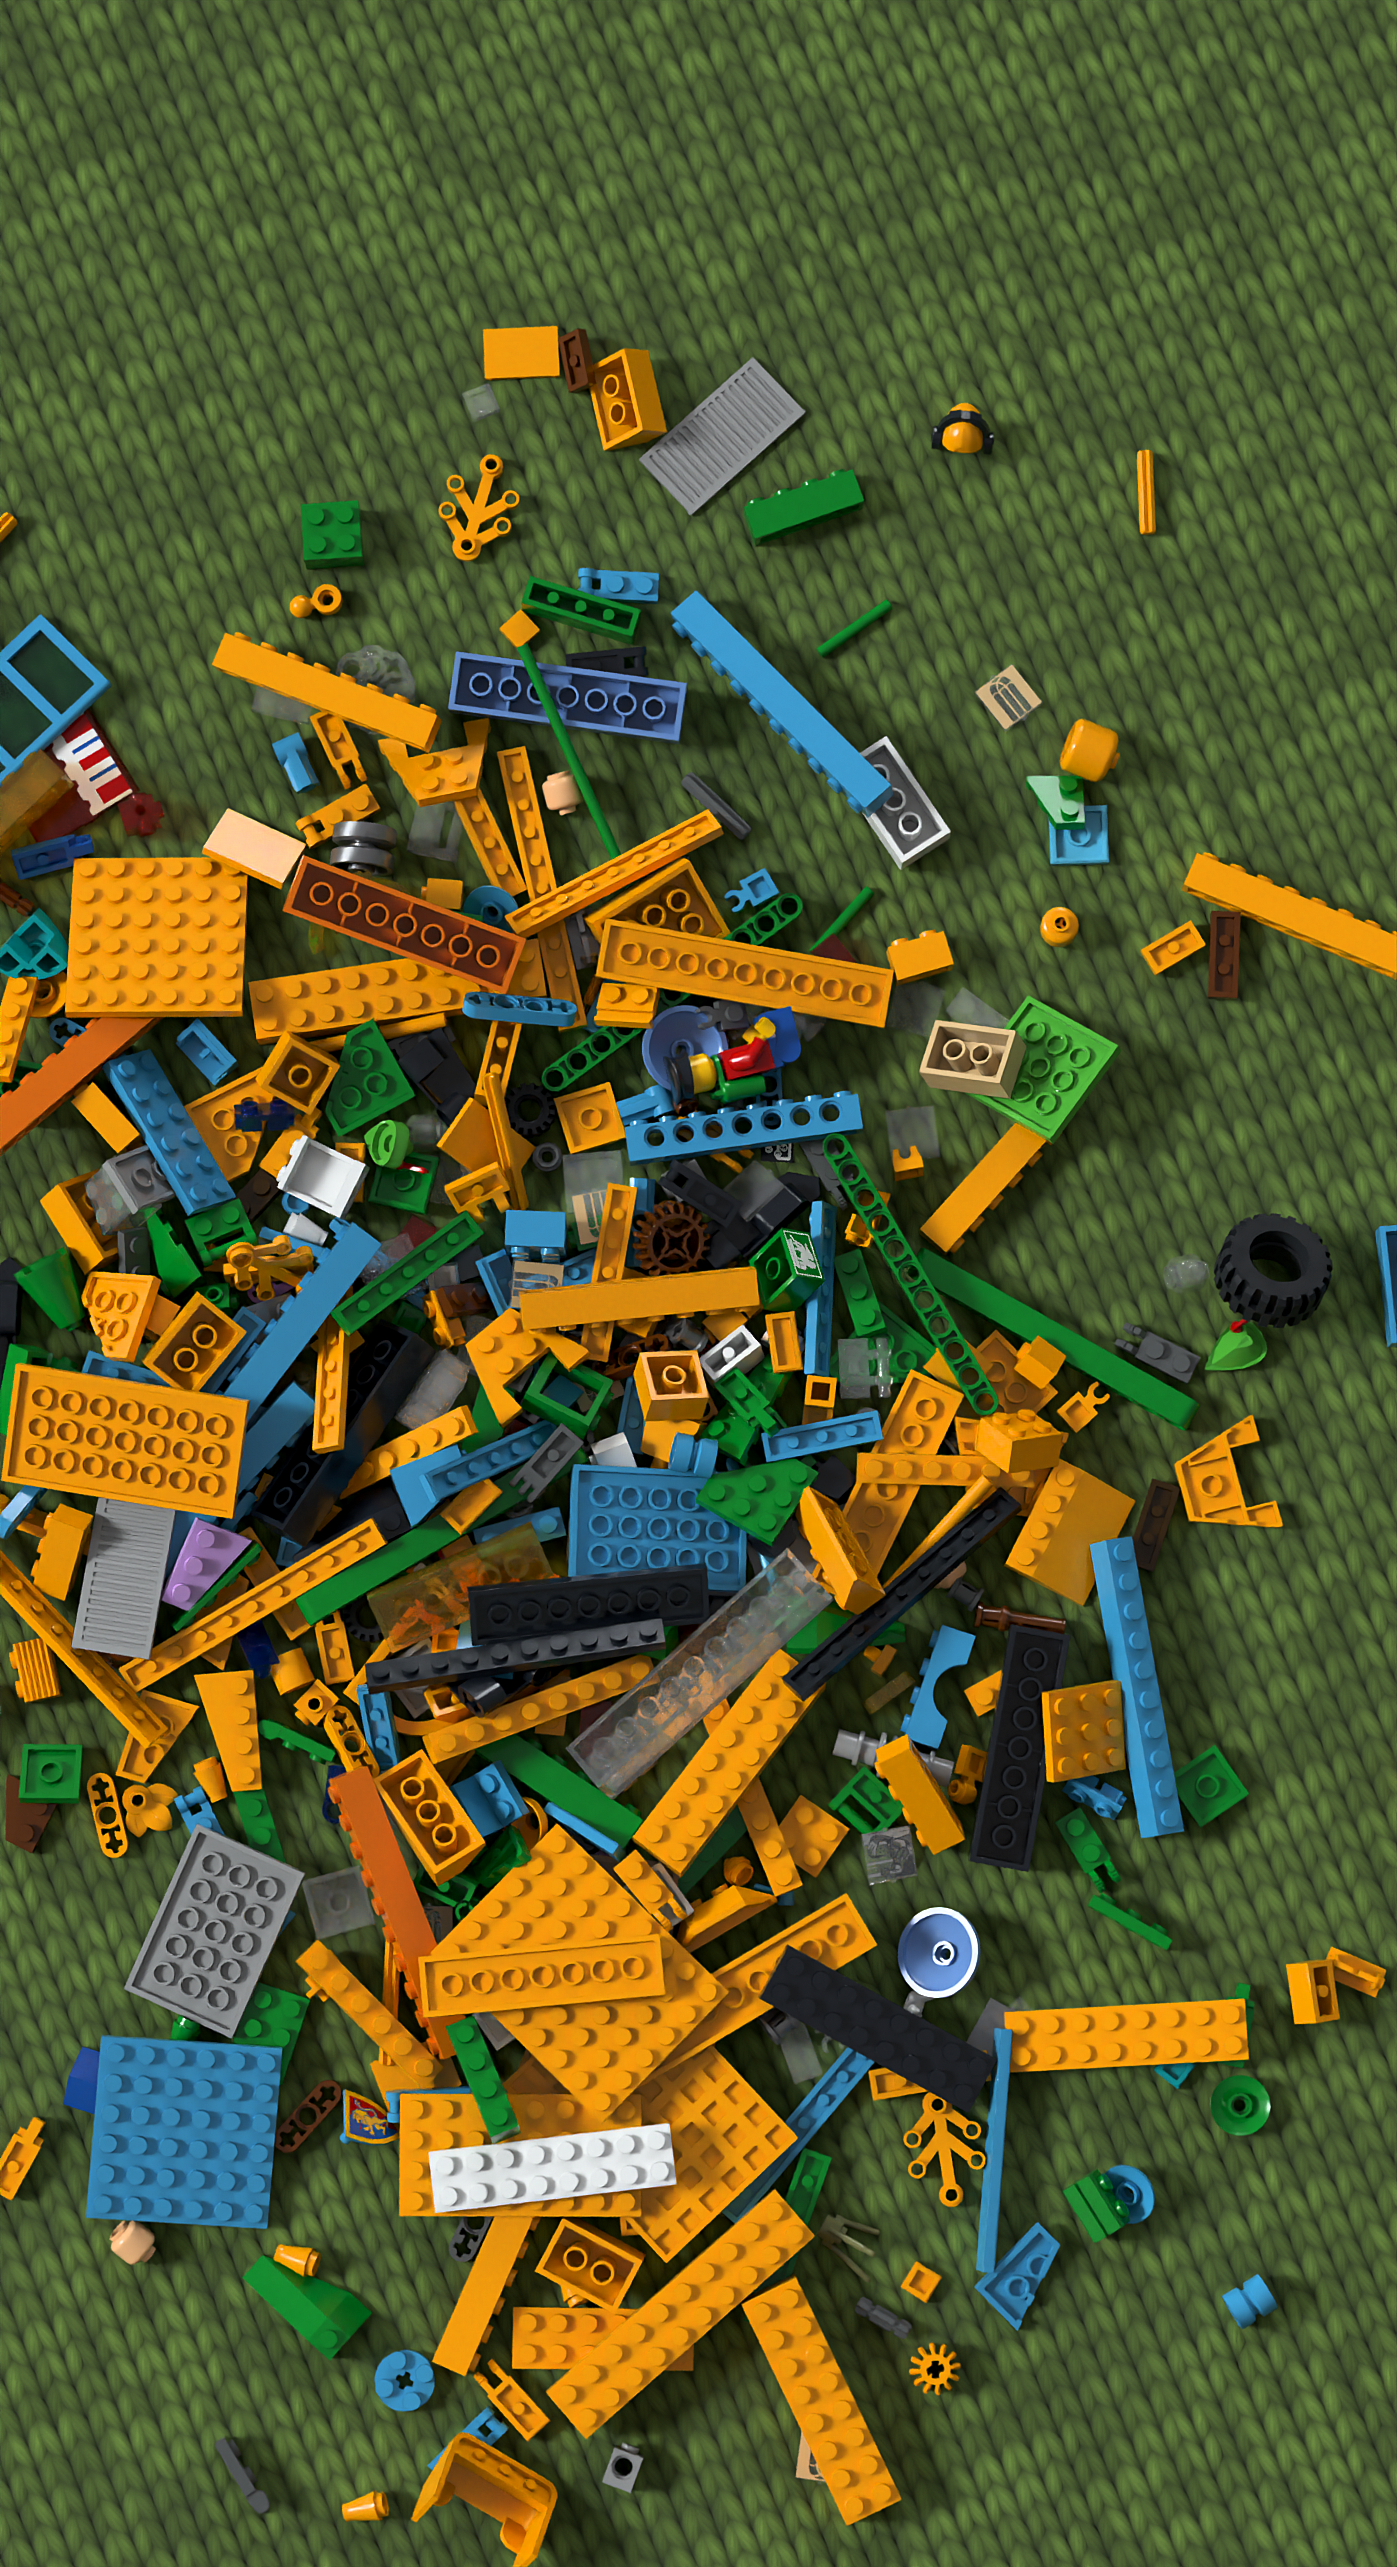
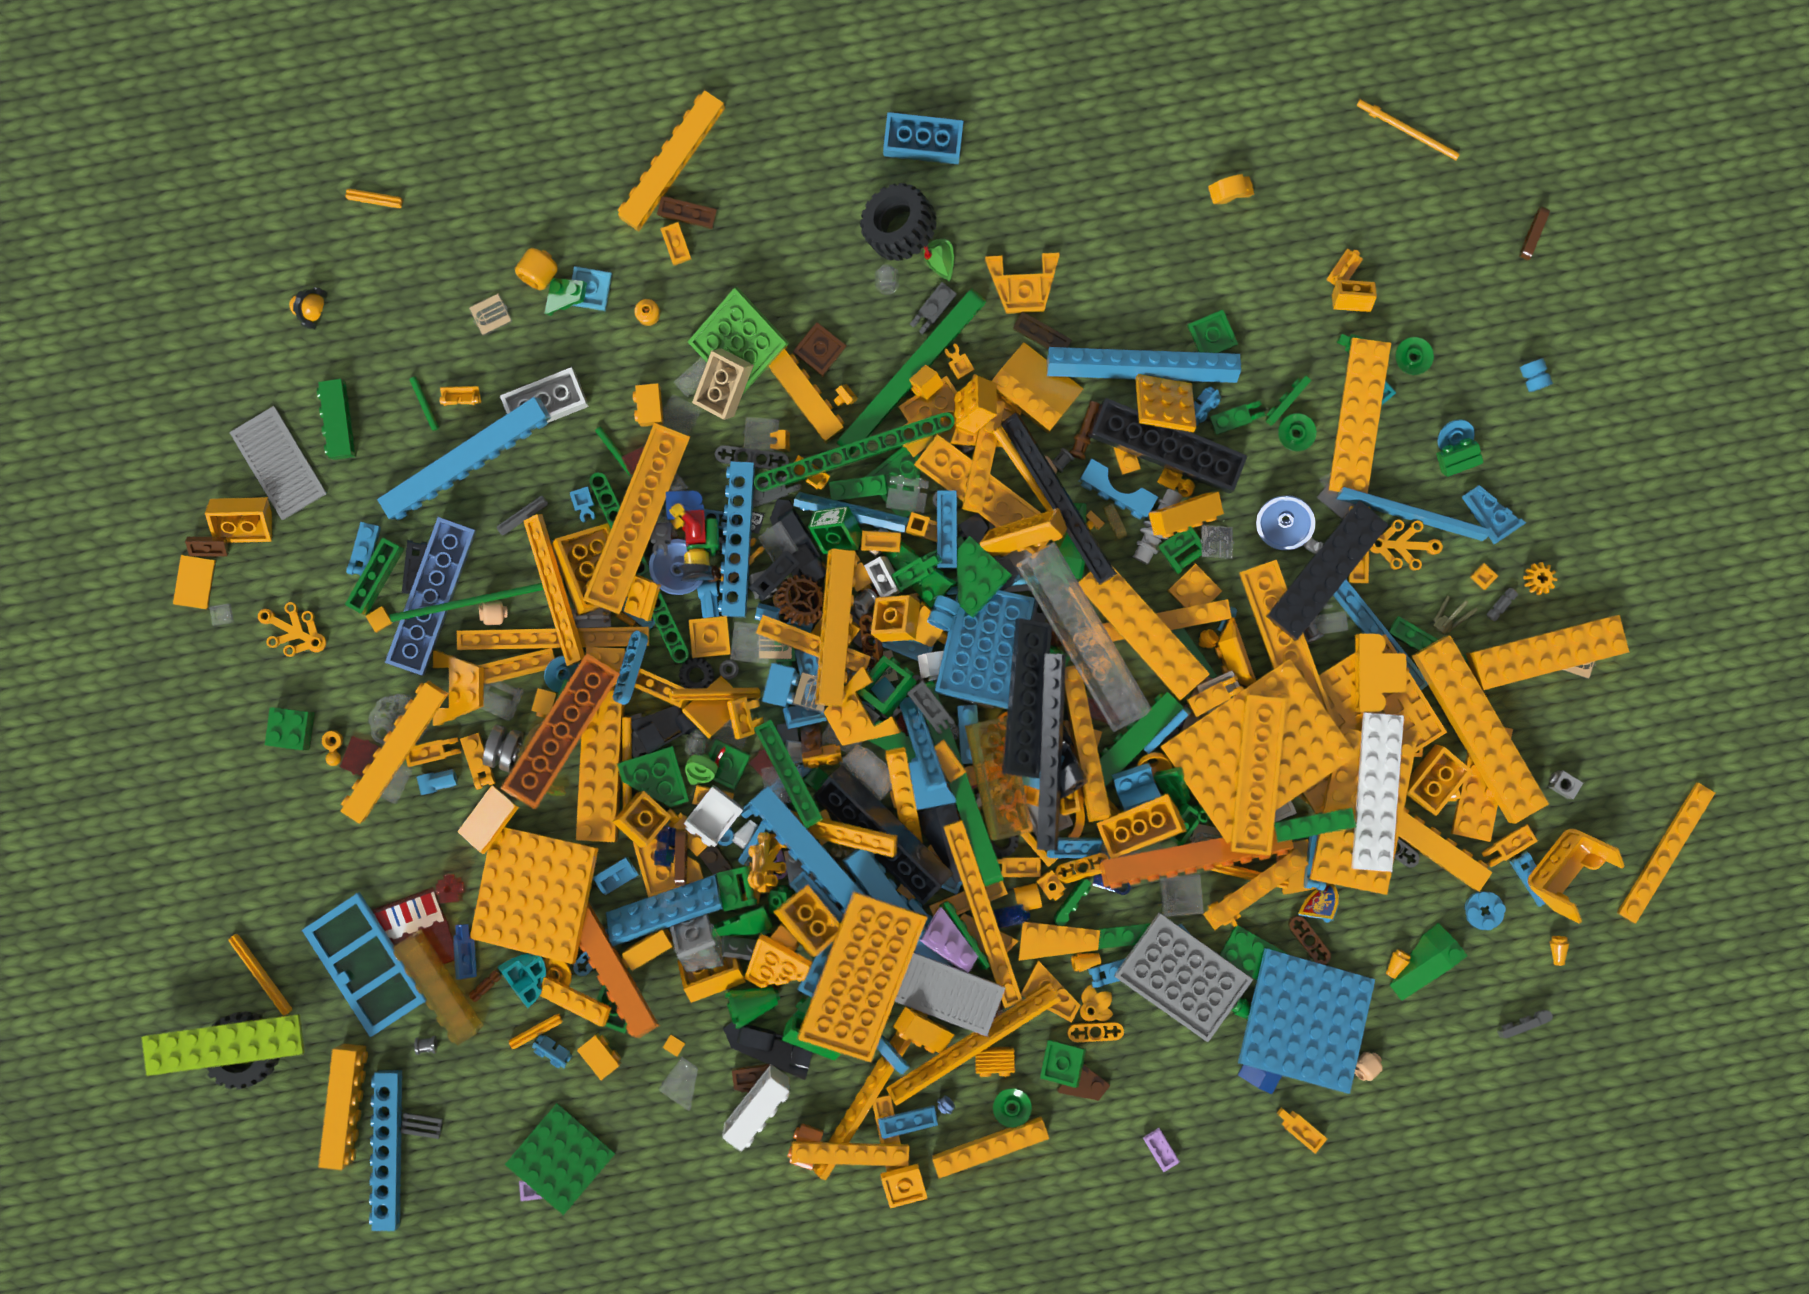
camera: 80 degrees left, 5 degrees up
(252, 1141) = (681, 857): none -> reddish brown beam
(312, 642) = (358, 755): none -> clear red piece
(734, 2134) = (1377, 673): none -> light orange brick
(873, 1127) = (752, 456): none -> dark grey beam
(878, 682) = (461, 395): none -> light orange hinge
(996, 1246) = (845, 395): none -> light orange tile
(1058, 1194) = (819, 349): none -> reddish brown plate
(1099, 1945) = (1303, 425): none -> green dish

